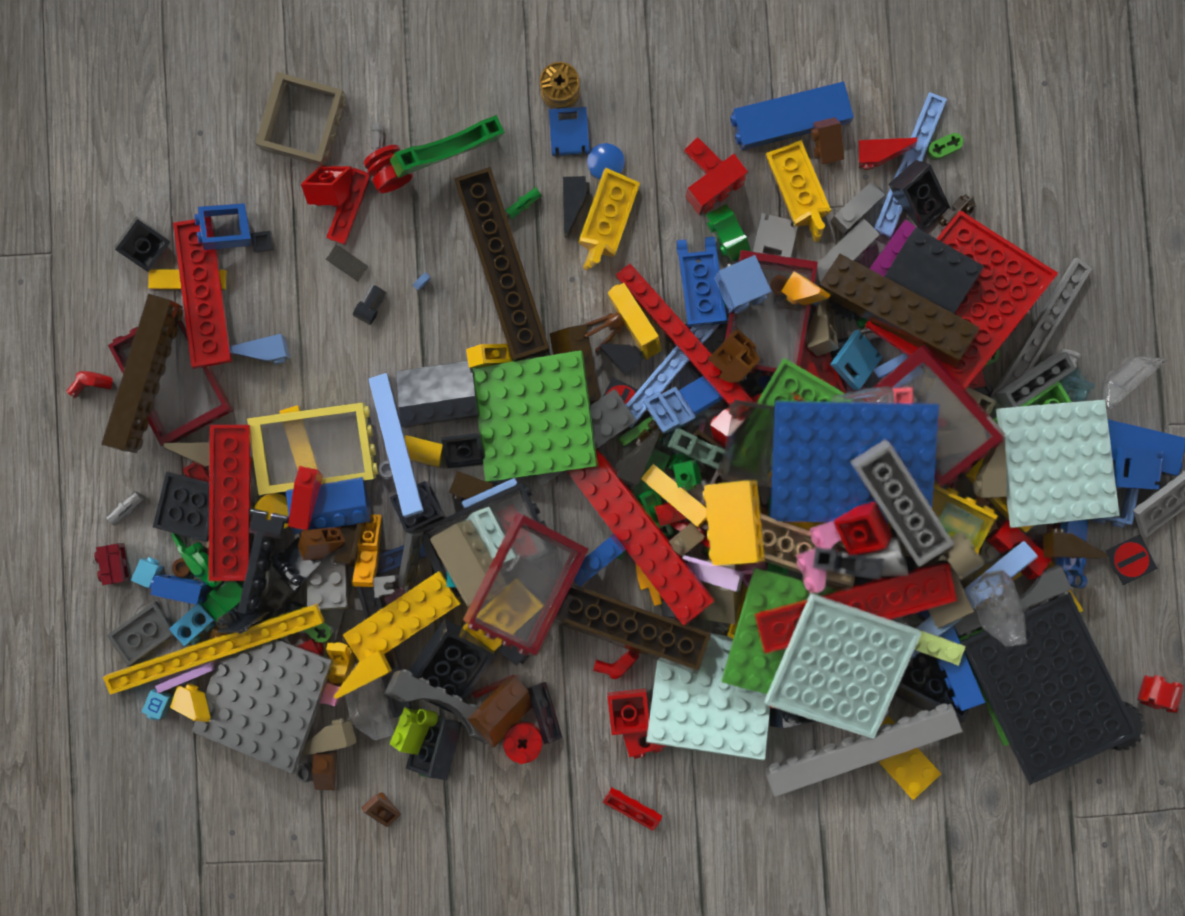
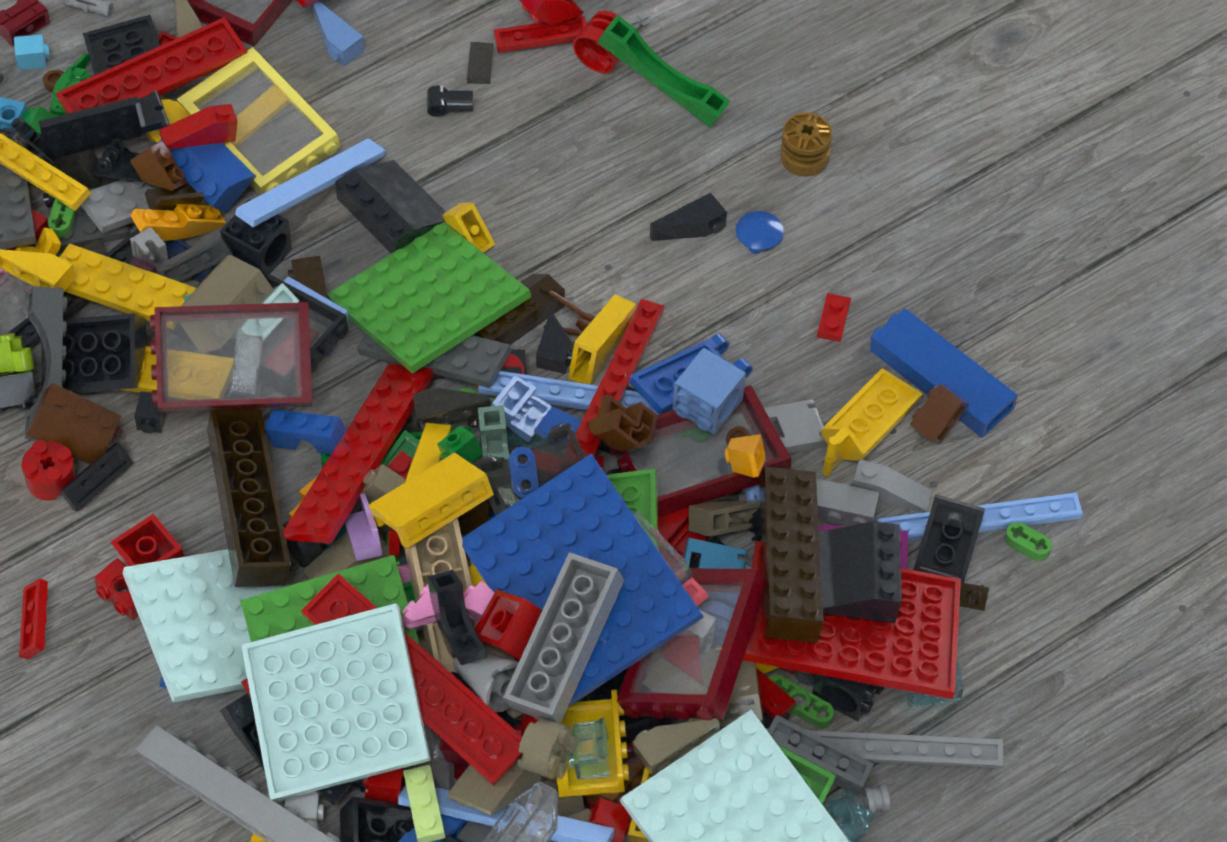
camera: 55 degrees right, 30 degrees down
(179, 589) = (30, 77): blue window -> none
(421, 281) = (506, 132): medium blue tile -> none
(424, 451) = (321, 222): yellow brick -> none
(463, 450) = (348, 253): black slope -> none
(502, 264) = (575, 188): dark brown brick -> none
(523, 203) = (658, 179): green pin -> none
(569, 134) = (761, 182): blue container -> none
(607, 216) = (697, 256): yellow hinge -> none
(618, 668) = (193, 522): red arm -> none
(716, 184) = (808, 333): red brick -> none
(728, 232) = (769, 373): green brick -> none
(743, 448) = (523, 472): none -> blue plate
(879, 151) = (969, 475): red slope -> none

